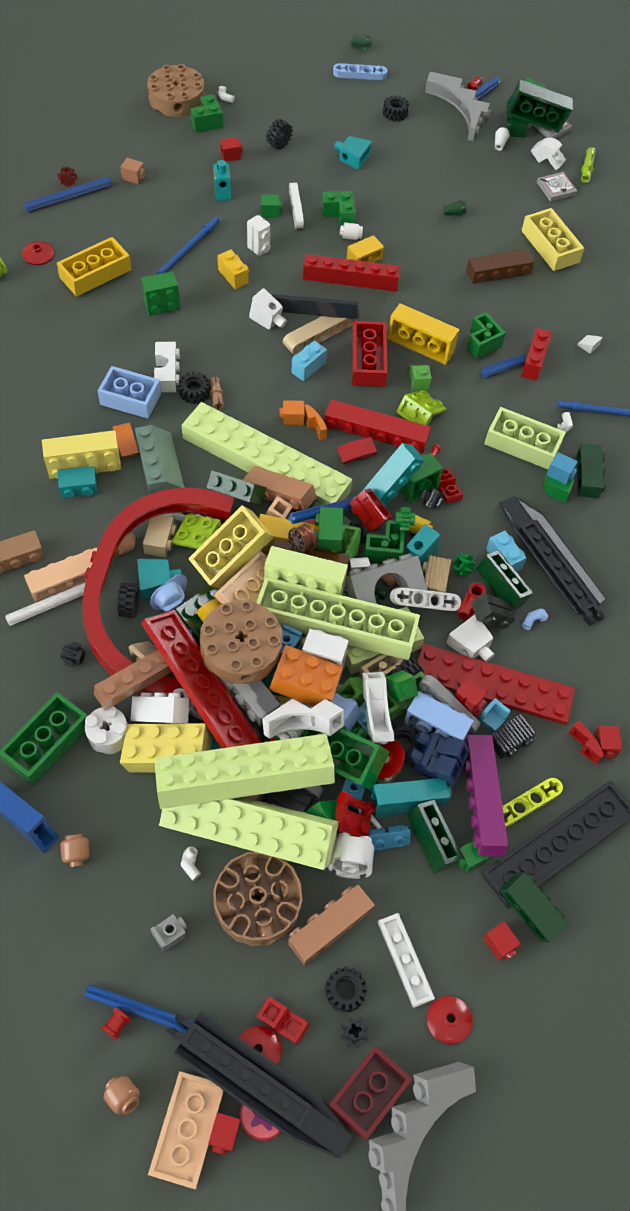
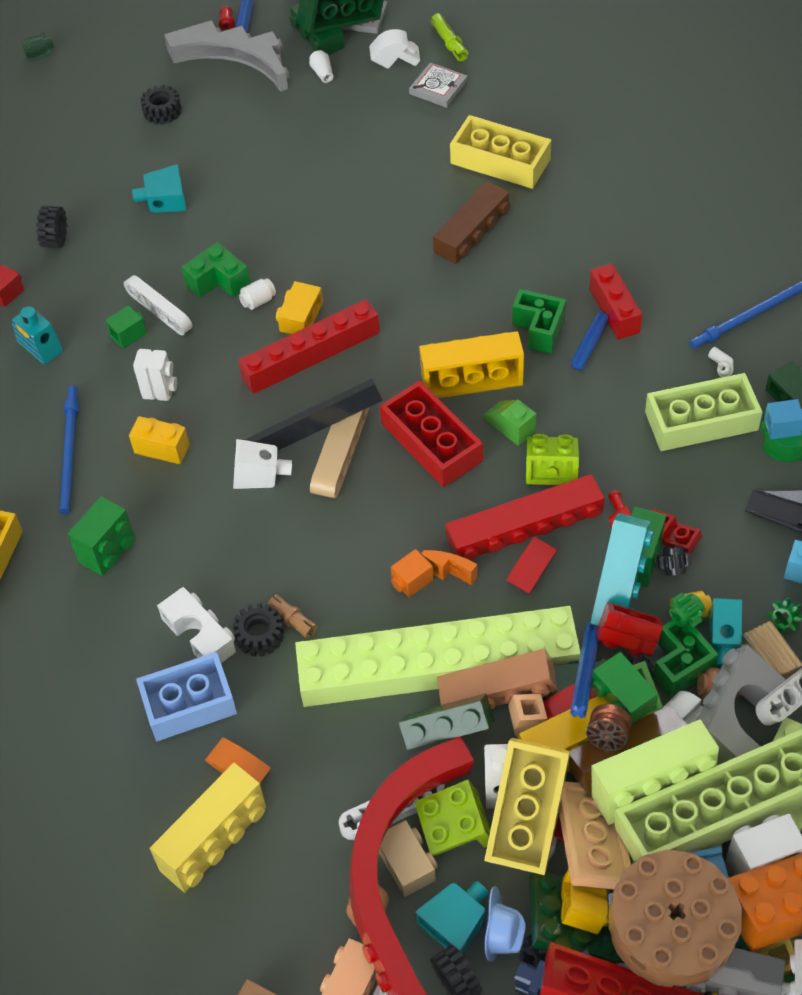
camera: 30 degrees left, 5 degrees down
(77, 482) = (233, 869): teal brick -> none
(158, 459) = (307, 761): sand green slope -> none
(309, 360) = (367, 493): medium azure brick -> none
(345, 71) = (92, 73): light blue beam -> none
(455, 208) = (353, 183): dark green cone -> none
(590, 343) = (654, 248): white slope -> none

